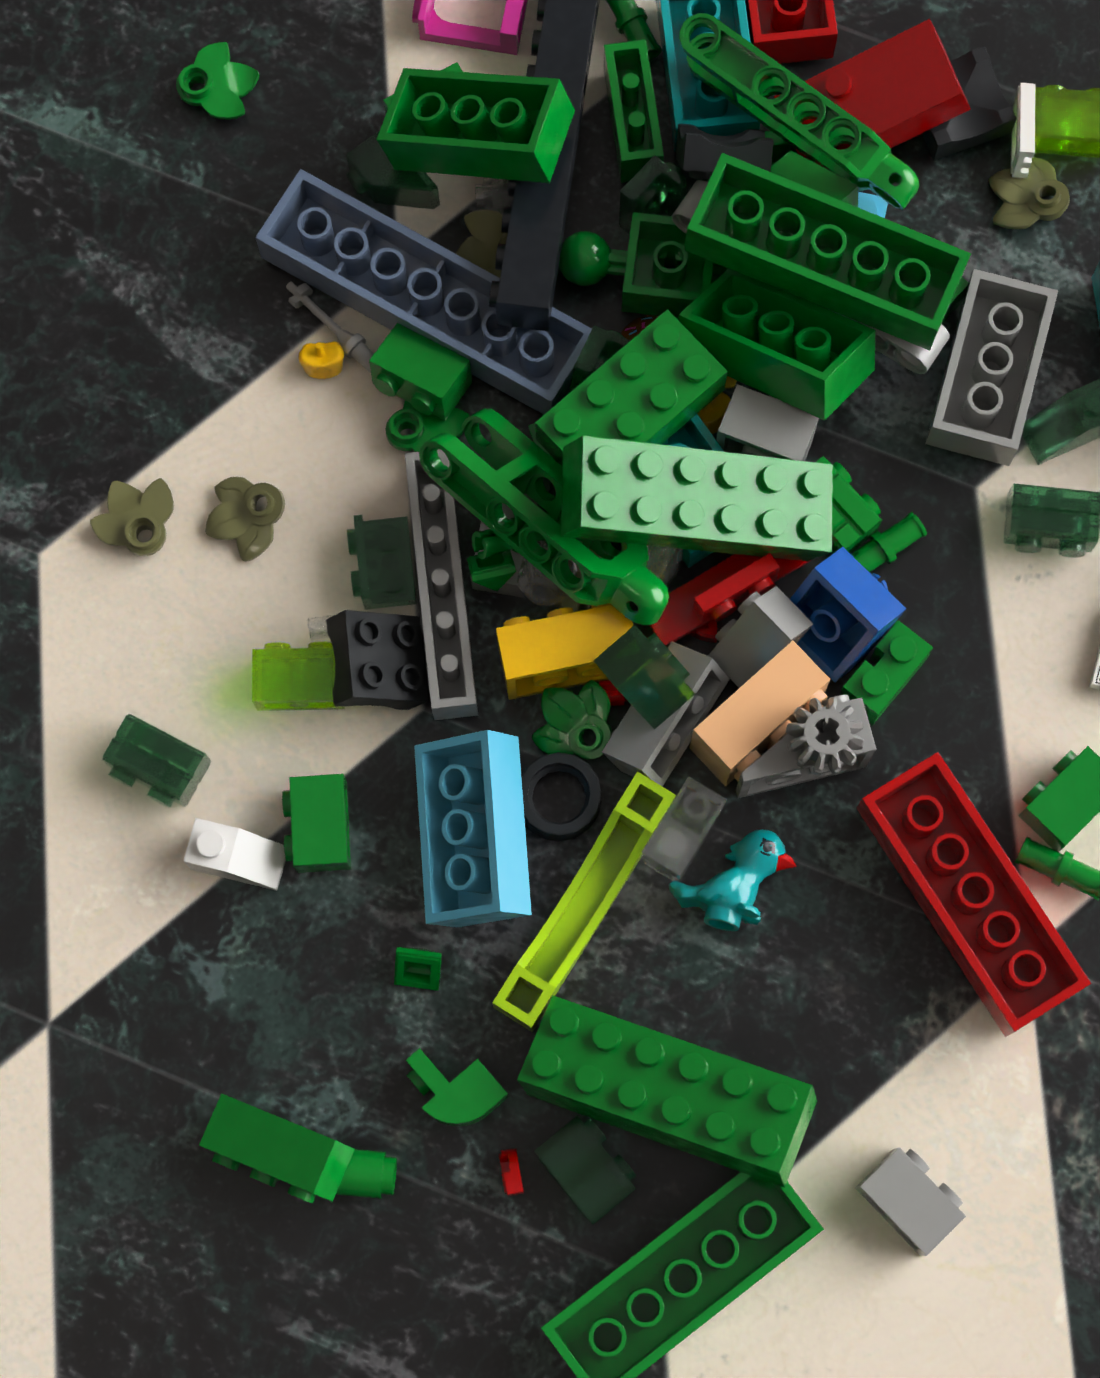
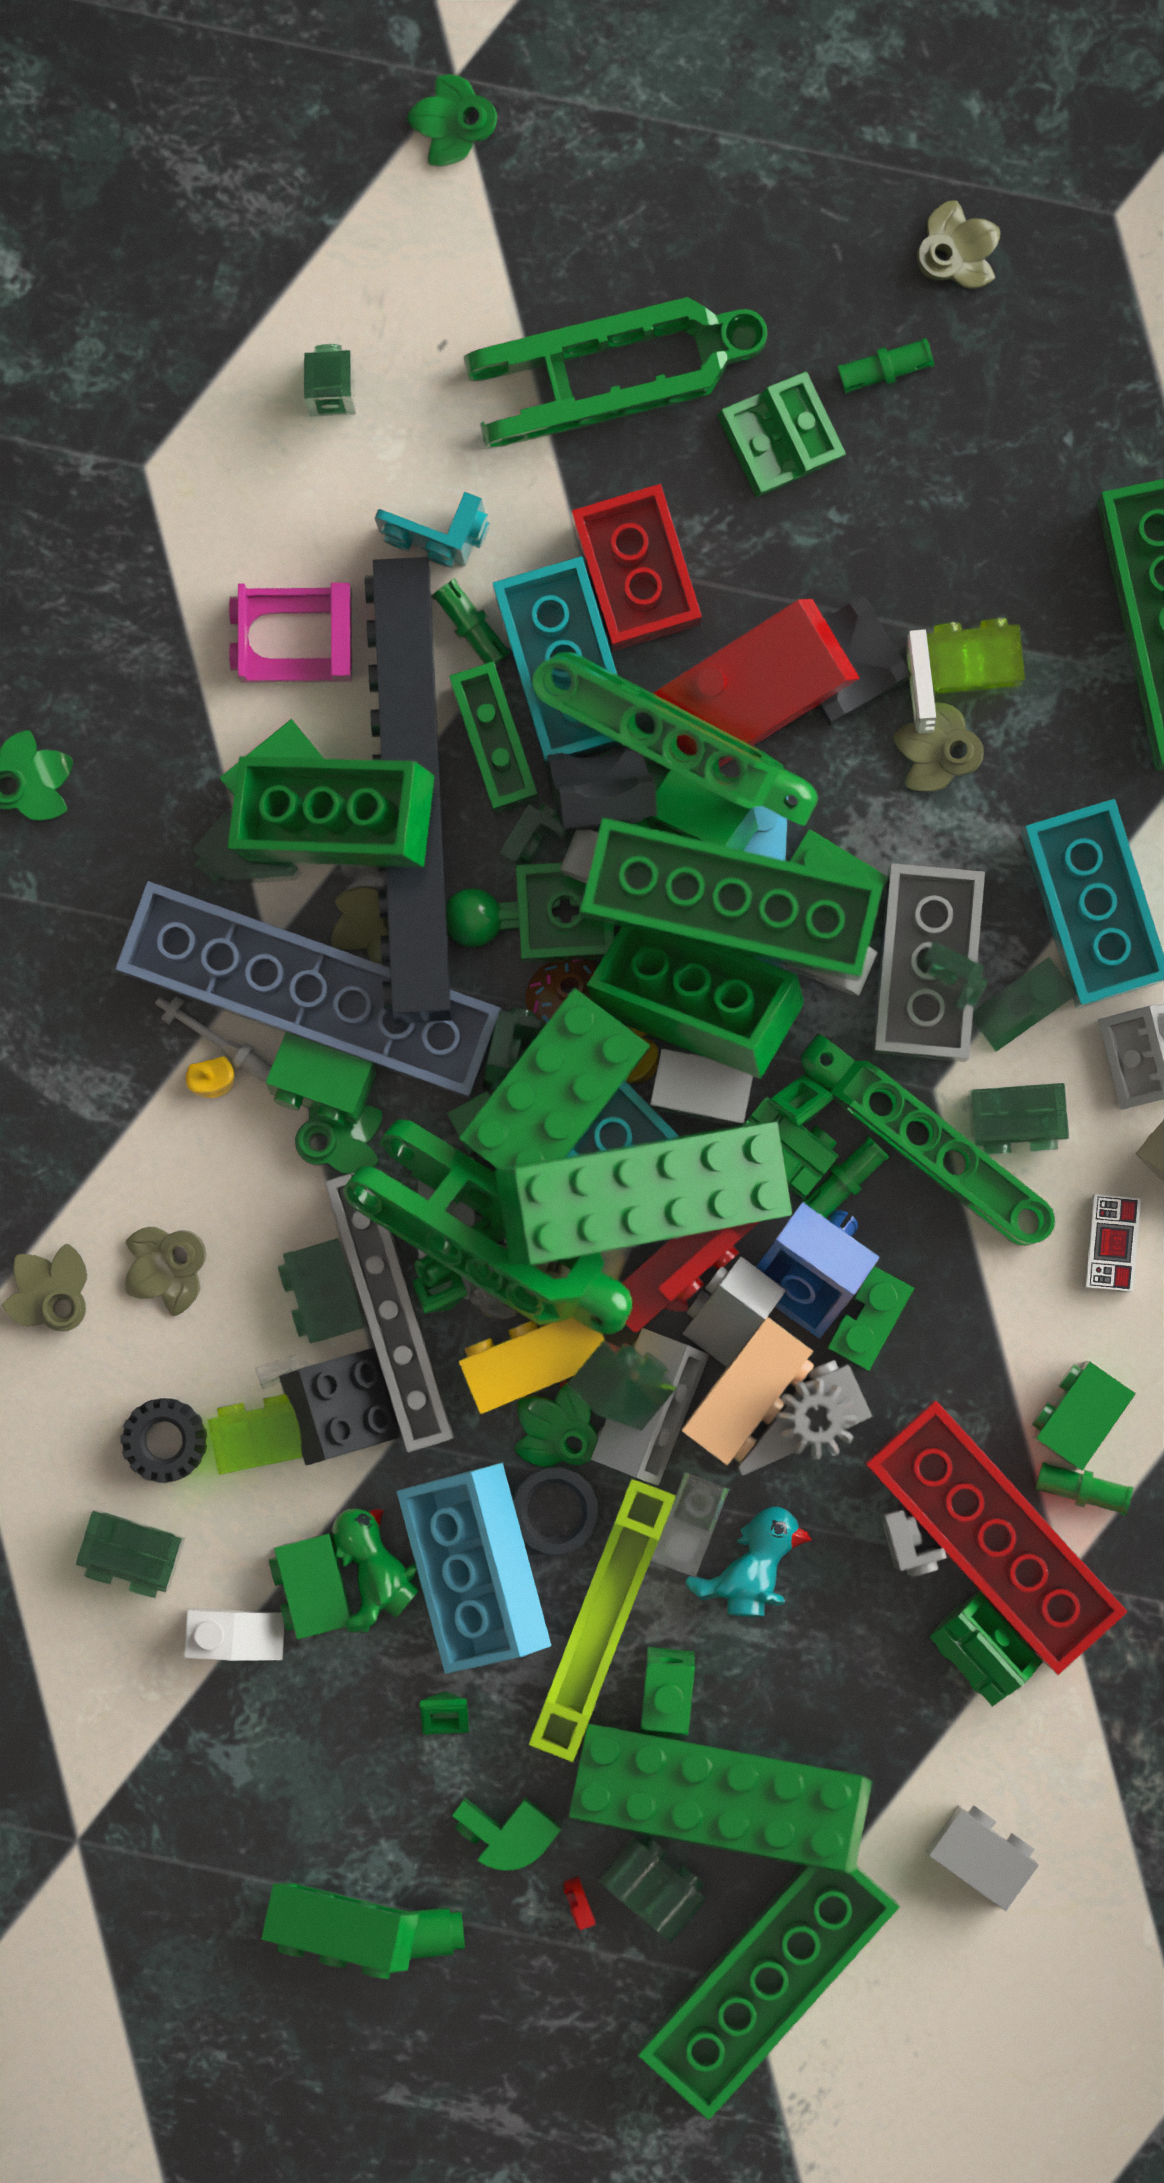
camera: 10 degrees left, 10 degrees up
(210, 641) = (135, 1445): none -> black tyre
(384, 825) = (381, 1576): none -> green animal
(633, 983) = (667, 1693): none -> green torso
(857, 462) = (801, 1100): none -> green slope
(881, 874) = (901, 1537): none -> light grey bracket
(945, 999) = (985, 1649): none -> green brick
(1015, 570) = (984, 1183): none -> green piece
(1021, 355) = (951, 966): none -> clear green bracket

